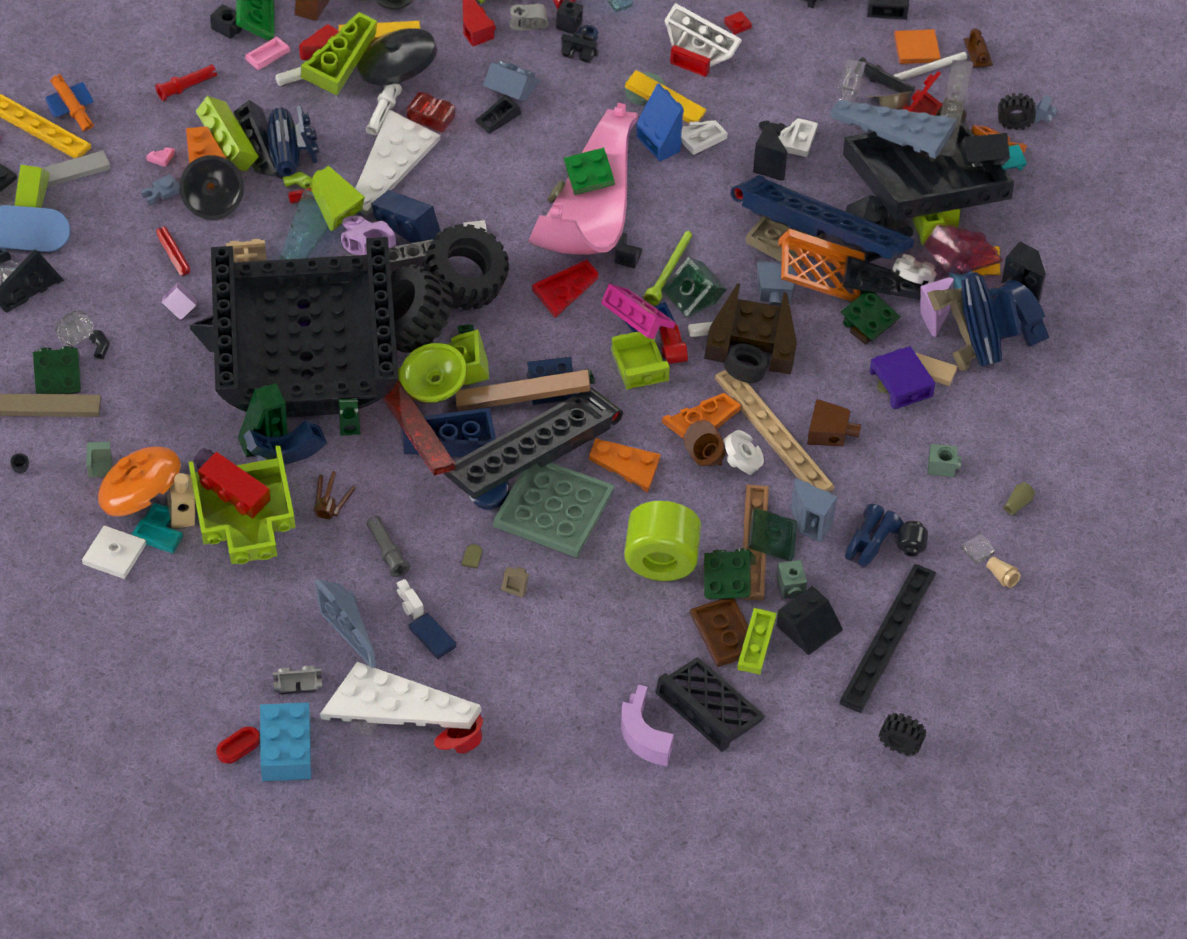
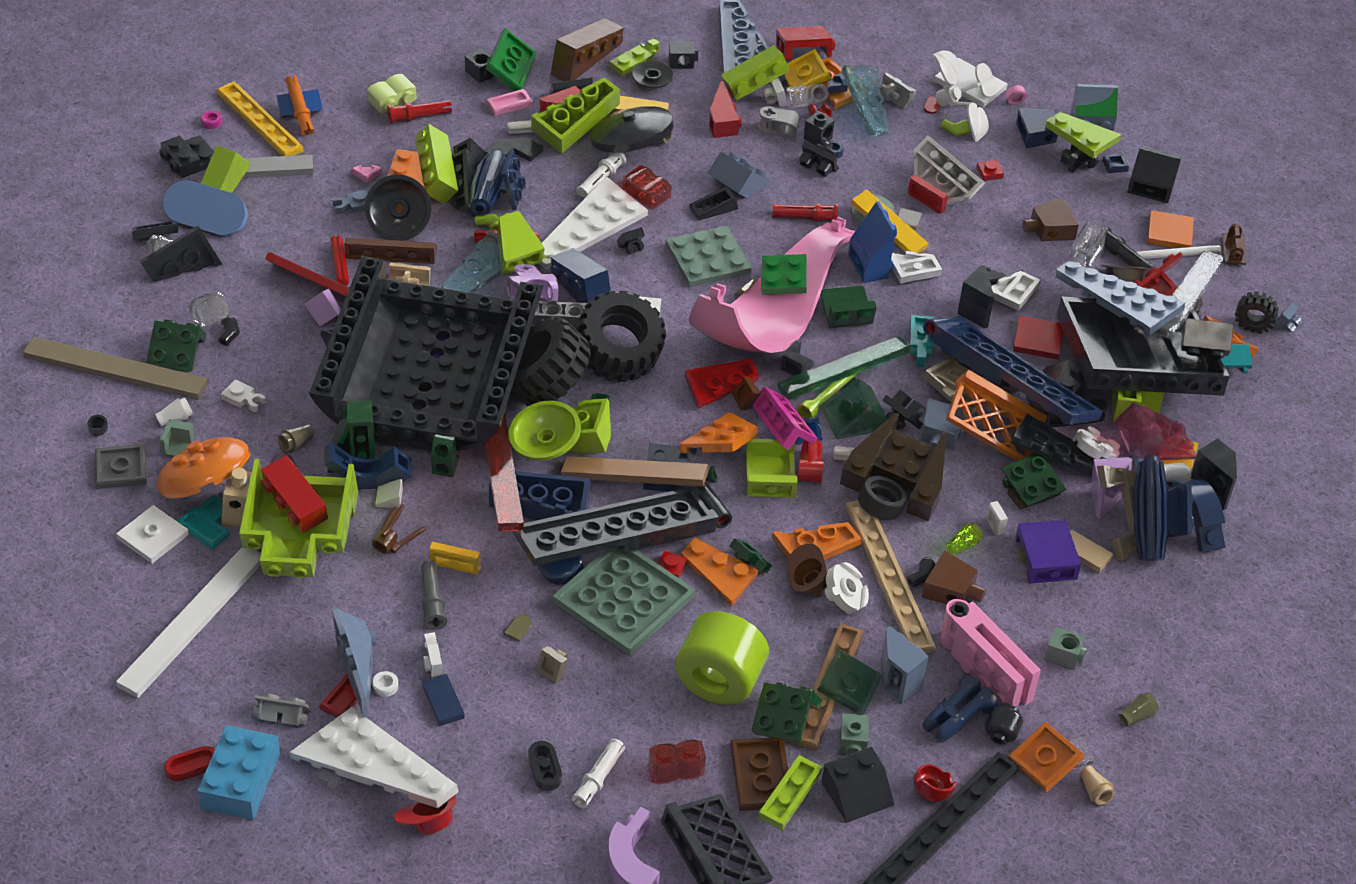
camera: 15 degrees right, 5 degrees down
(56, 496) = (120, 466): none -> dark grey tile
(86, 433) = (177, 410): none -> white cone
(137, 402) = (240, 394): none -> white plate
(153, 69) = (394, 92): none -> yellowish green brick
(159, 274) = (307, 274): none -> red tile
(183, 621) = (189, 622): none -> white tile
(204, 432) = (293, 438): none -> dark tan cone
(217, 230) = (391, 250): none -> reddish brown panel
(294, 96) = (522, 147): none -> black tile
(311, 464) = (389, 494): none -> white slope
(333, 20) = (580, 83): none -> black tile
(343, 657) = (339, 699): none -> red tile
(377, 634) = (385, 684): none -> white tile
(394, 508) = (455, 558): none -> yellow tile
(437, 167) = (631, 238): none -> black tile
(511, 168) = (708, 256): none -> sand green plate
(543, 671) = (545, 767): none -> black plate
(584, 466) = (673, 563): none -> red plate
(588, 673) = (593, 781): none -> white pin
(589, 339) = (722, 435): none -> orange wing
(593, 102) = (816, 212): none -> red pin
(593, 294) = (745, 393): none -> reddish brown tile
(646, 442) = (746, 552): none -> dark green plate
(652, 638) = (681, 761): none -> clear red brick
(655, 189) = (847, 306): none -> dark green bracket
(672, 248) = (843, 367): none -> tile
(682, 87) = (910, 217): none -> light grey tile
(730, 209) = (920, 343): none -> teal hinge
(731, 273) = (911, 414): none -> black hips
(804, 421) = (925, 567): none -> black arm
(811, 62) = (1052, 221): none -> reddish brown torso
(829, 381) = (965, 538): none -> clear neon green cone
(832, 179) = (1038, 337): none -> red tile
(849, 358) = (996, 518): none -> white tile
(870, 603) = (933, 783): none -> red hair
(882, 480) = (988, 653): none -> bright pink hinge
(956, 558) = (1046, 756): none -> orange tile
(992, 278) = (1177, 472): none -> white cone

